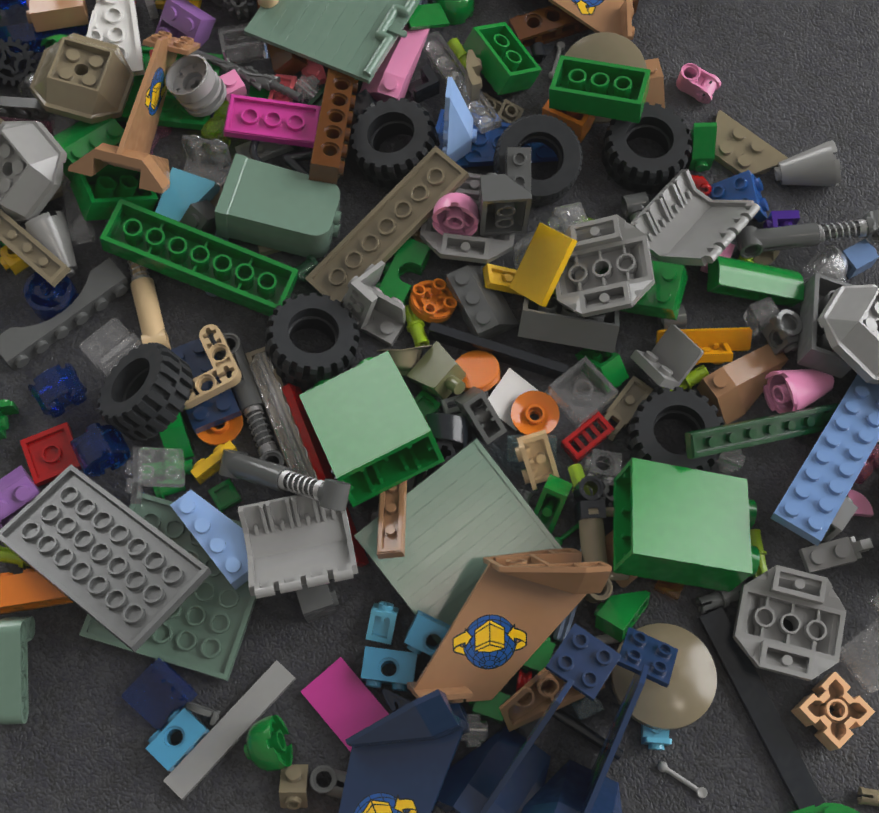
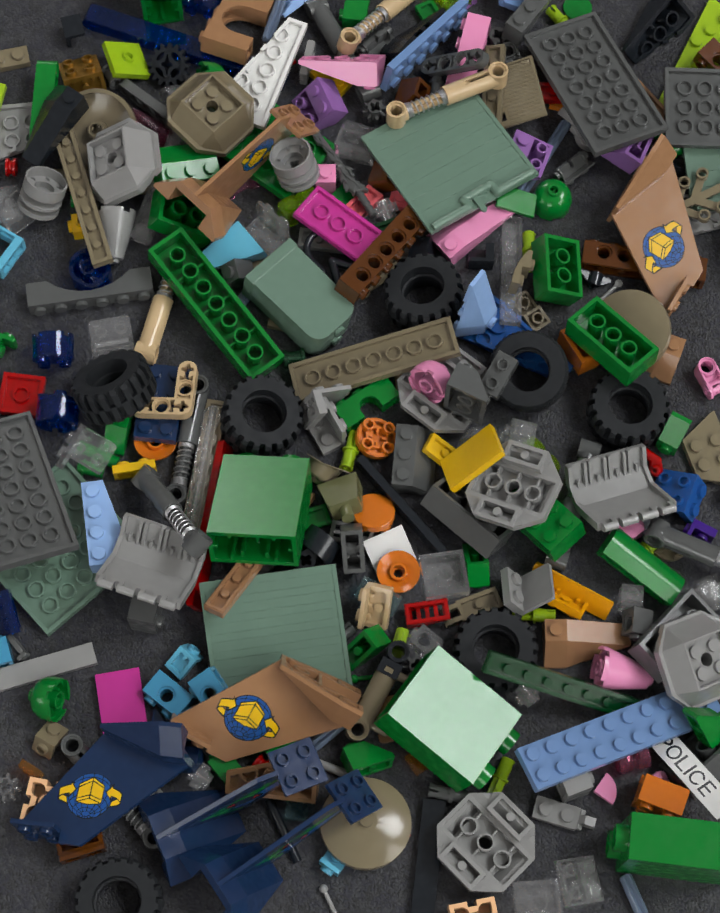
camera: 30 degrees right, 0 degrees up
(224, 495) = (127, 499): green tile -> none
(784, 333) = (632, 607): dark grey piece -> none

